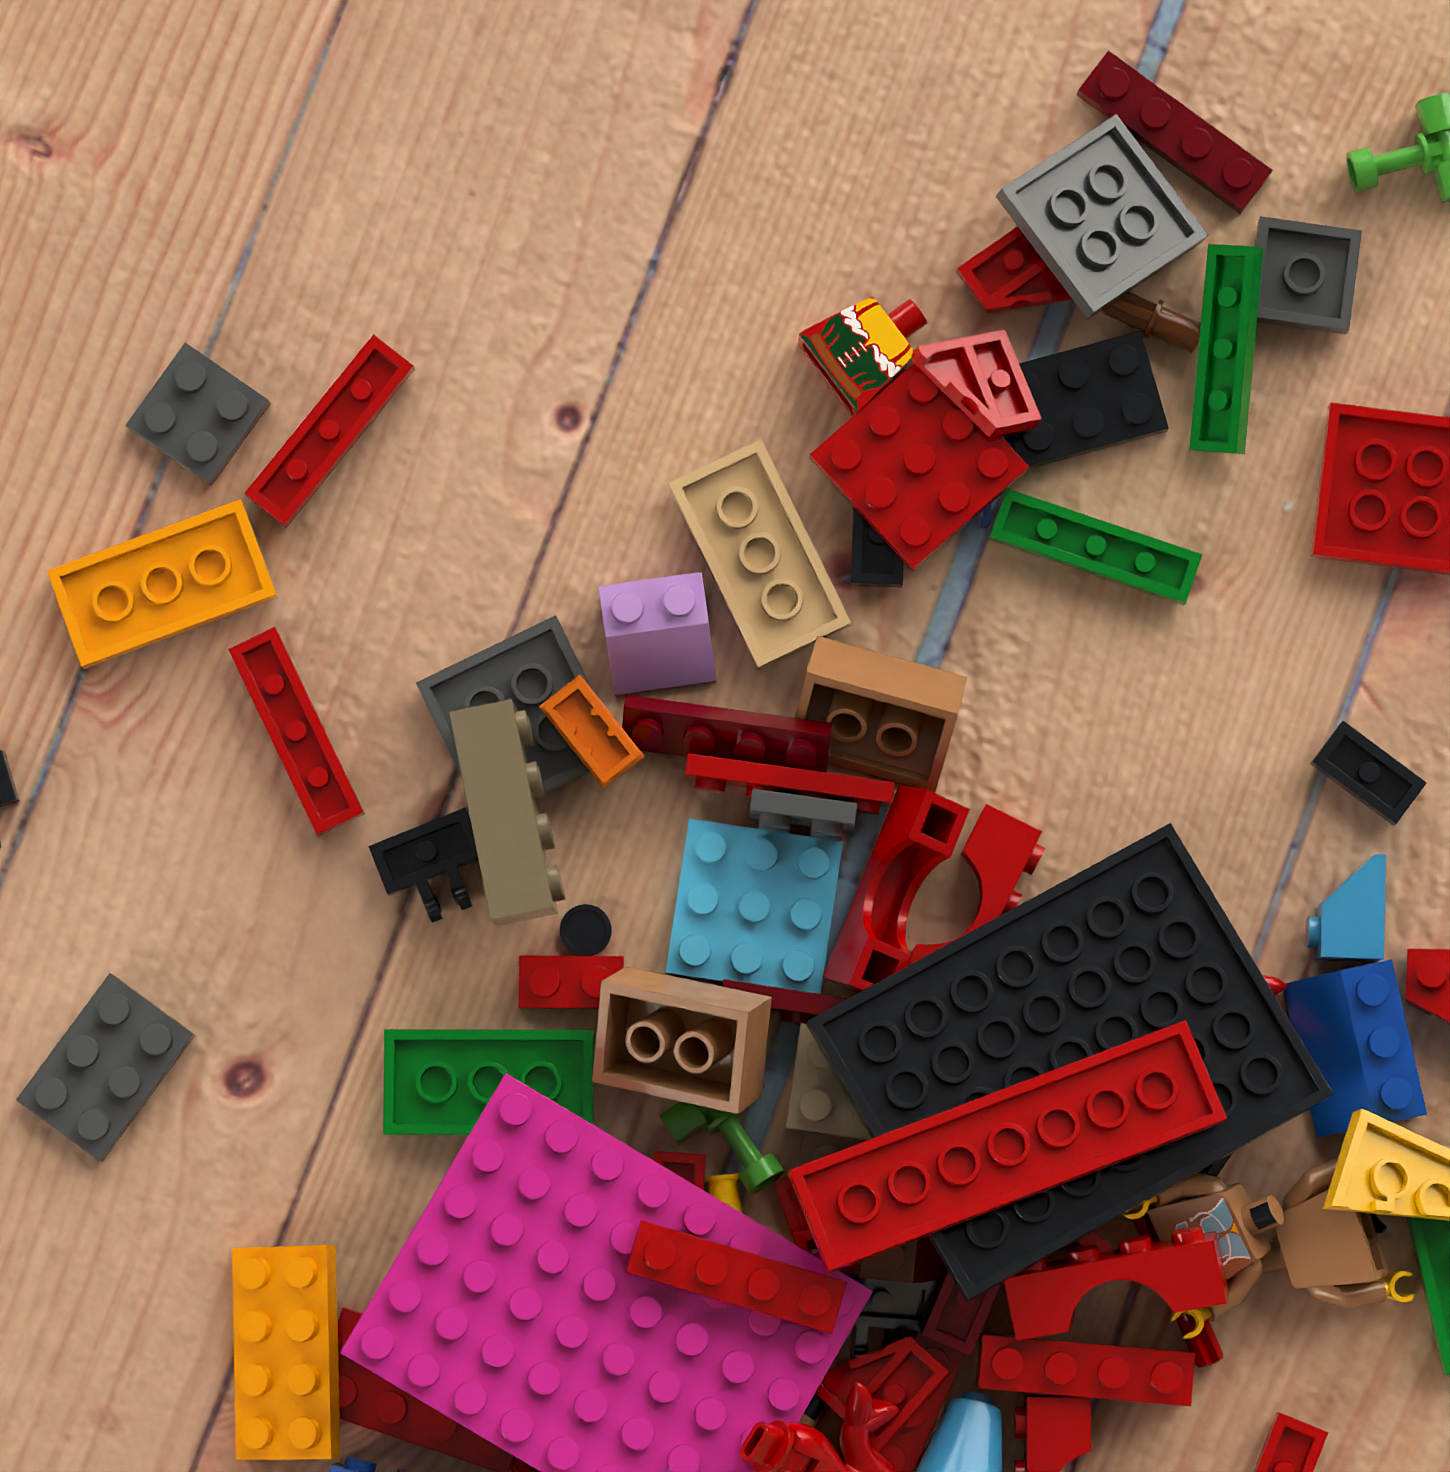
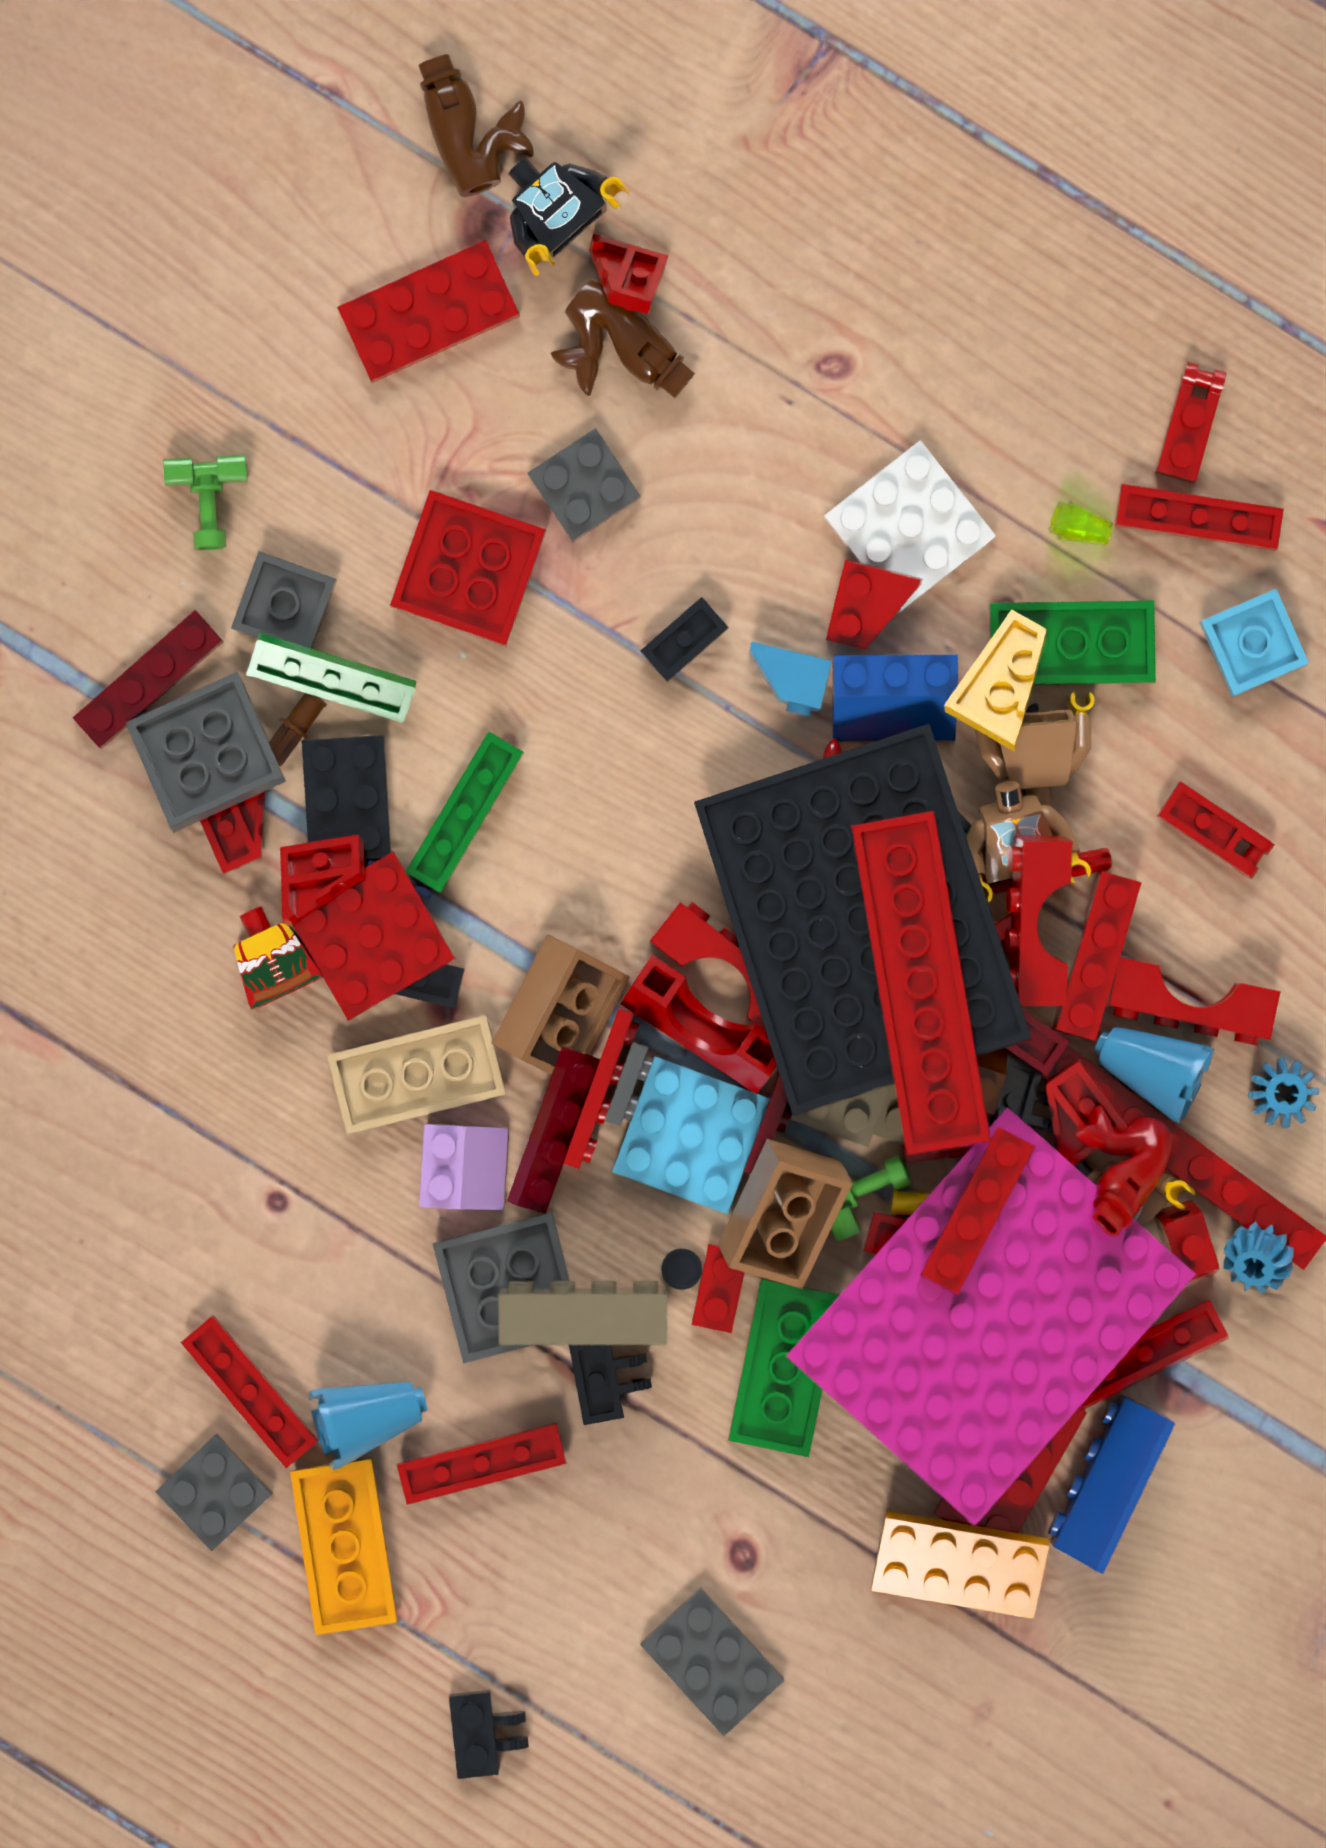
camera: 80 degrees left, 5 degrees up
(326, 575) = (364, 1417): none -> dark azure cone
(591, 732) = (531, 1234): orange plate -> none

